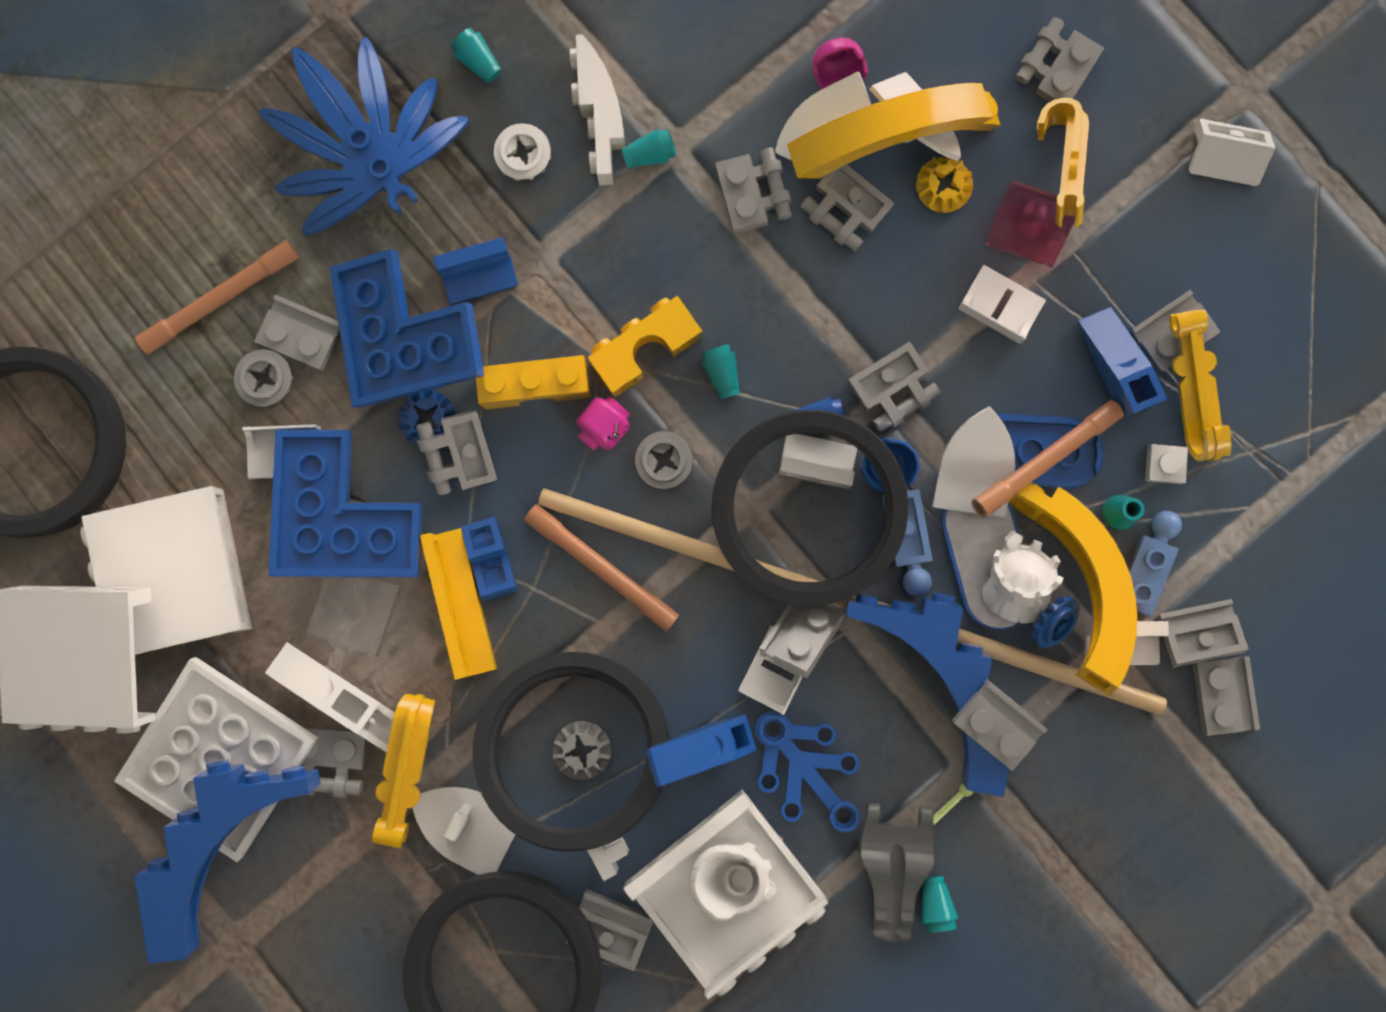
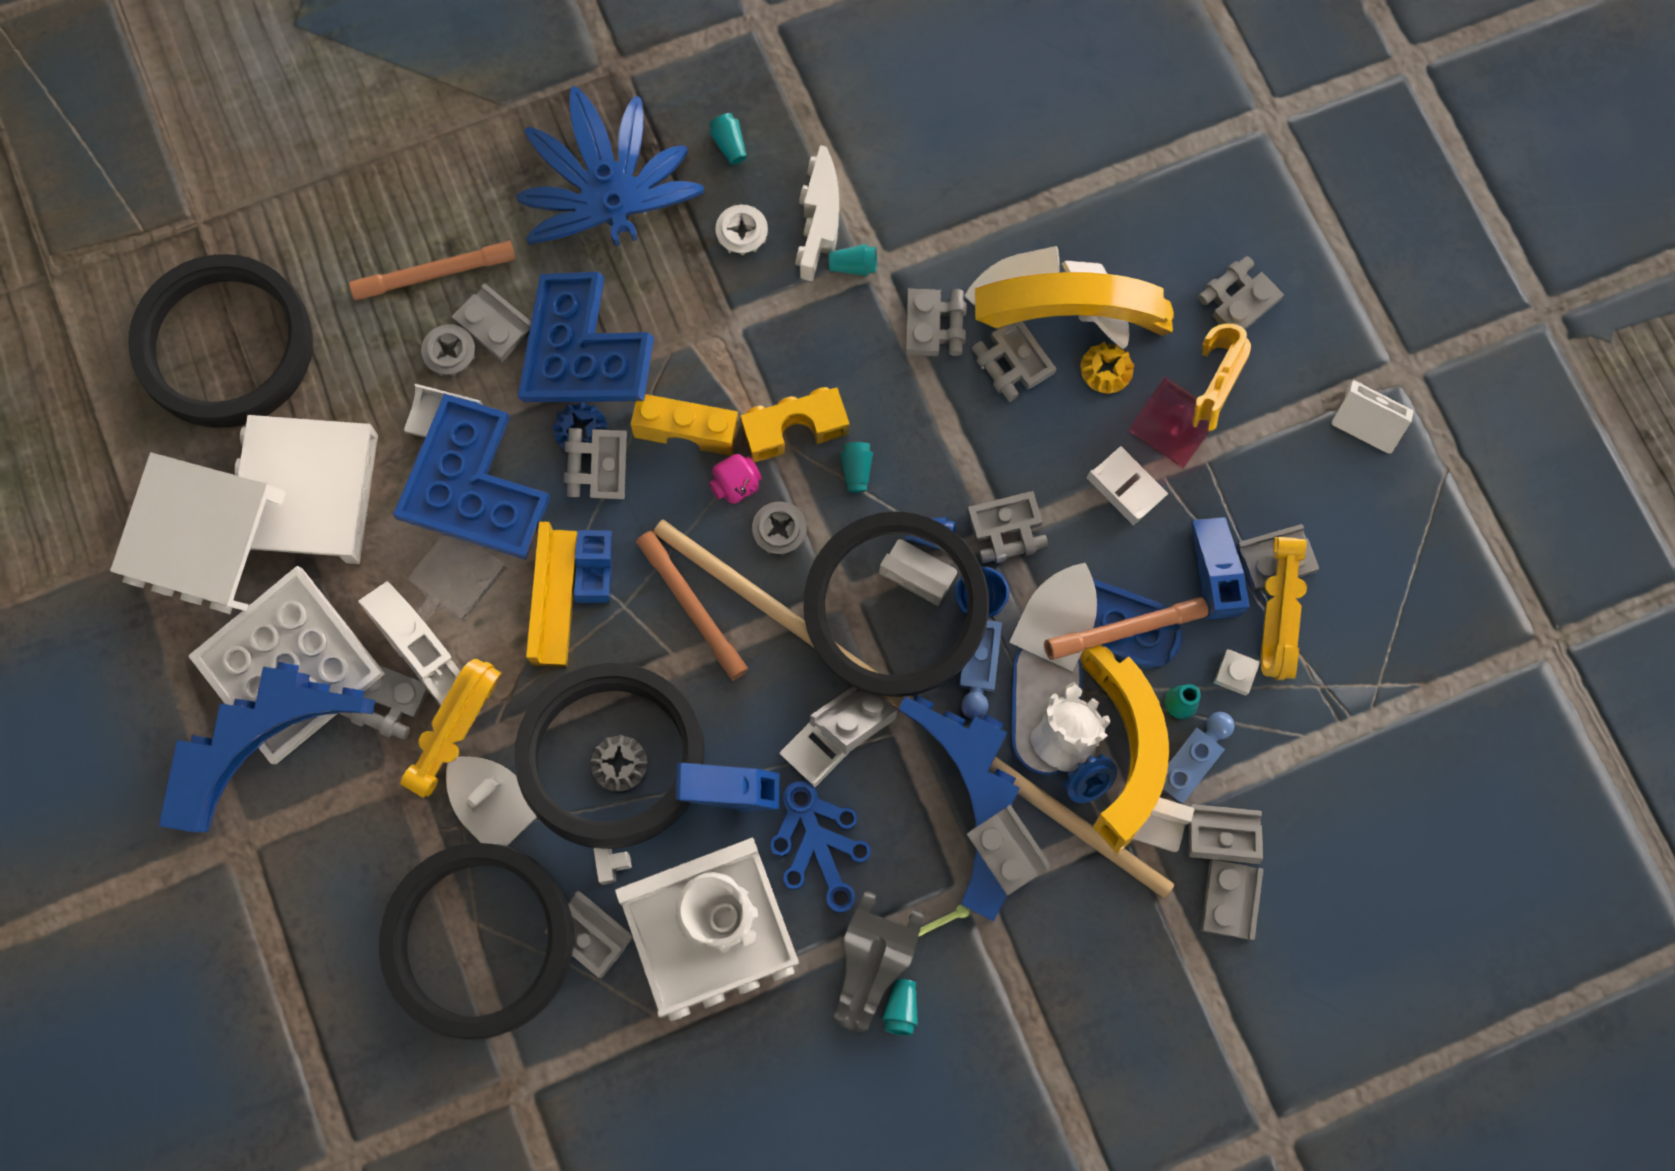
camera: 10 degrees right, 10 degrees down
(476, 271) = (668, 315): blue panel -> none
(837, 60) = (1043, 232): dark pink hair -> none

